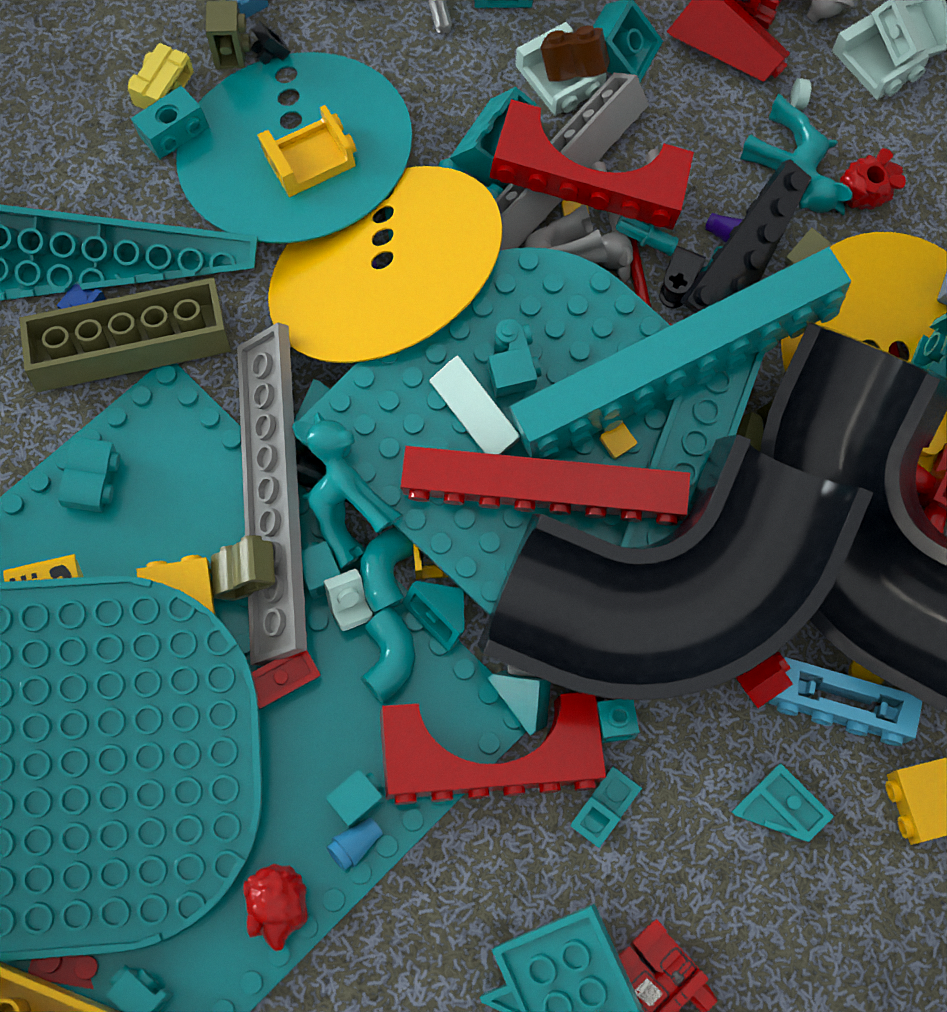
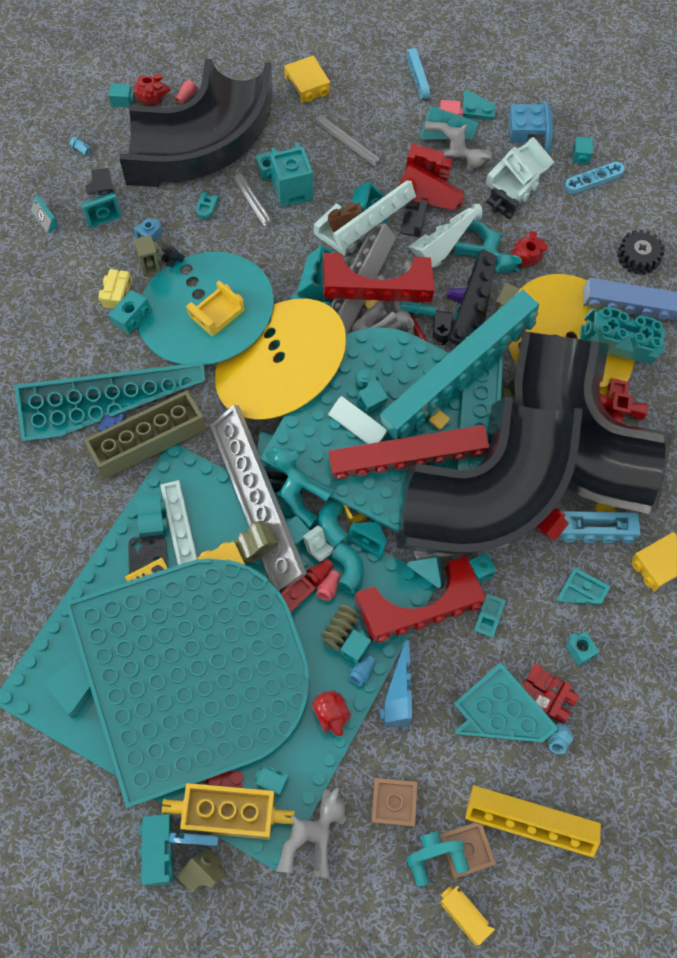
camera: 15 degrees left, 5 degrees down
(66, 535) = (147, 552): none -> black axle
(133, 500) = (178, 522): none -> light aqua tile
(335, 649) = (319, 572): none -> red cone
(338, 757) = (339, 627): none -> olive piece
(344, 678) = (328, 587): none -> coral cone
(398, 913) = (398, 702): none -> dark azure wedge
(621, 56) = (374, 215): none -> light aqua plate
(691, 81) = (414, 219): none -> black panel
(719, 133) = (443, 240): none -> light aqua wedge
(763, 922) = (581, 657): none -> teal brick
(850, 89) = (502, 203): none -> black hips

